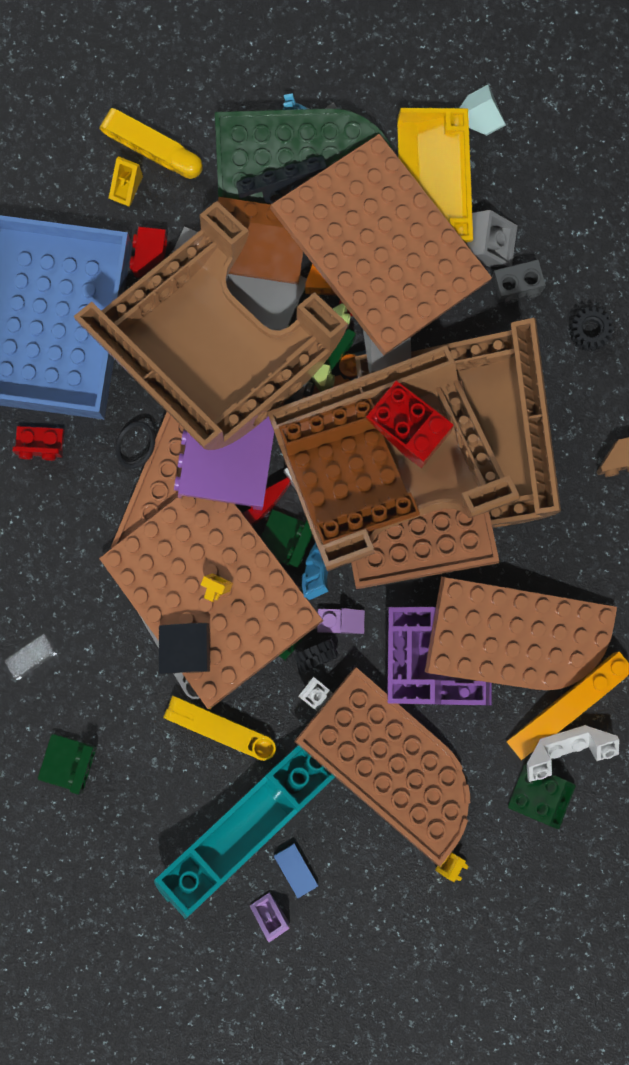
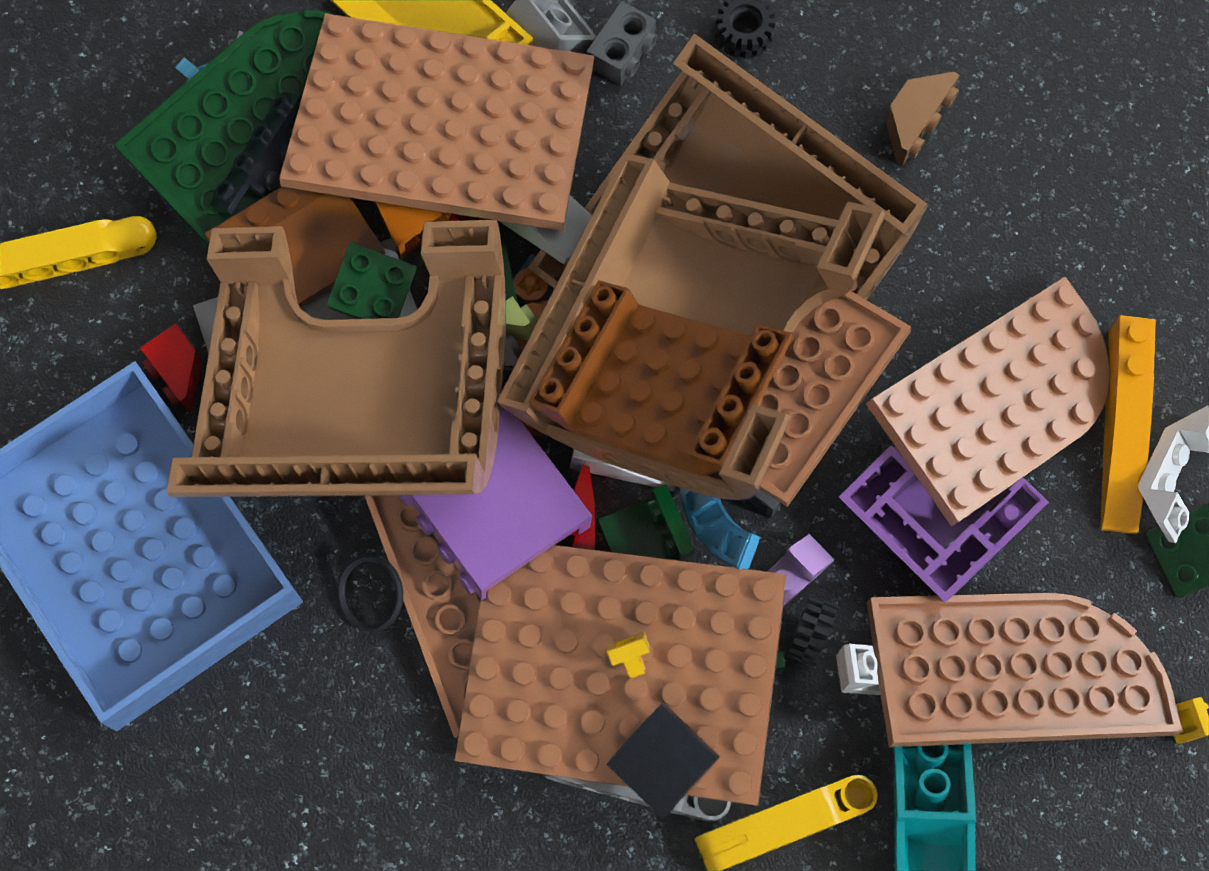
camera: 45 degrees left, 10 degrees down
(39, 442) = (250, 699): red bracket -> none
(125, 181) = (75, 314): yellow slope -> none
(269, 297) = (370, 284): none -> dark green bracket
(409, 424) = (672, 266): red slope -> none

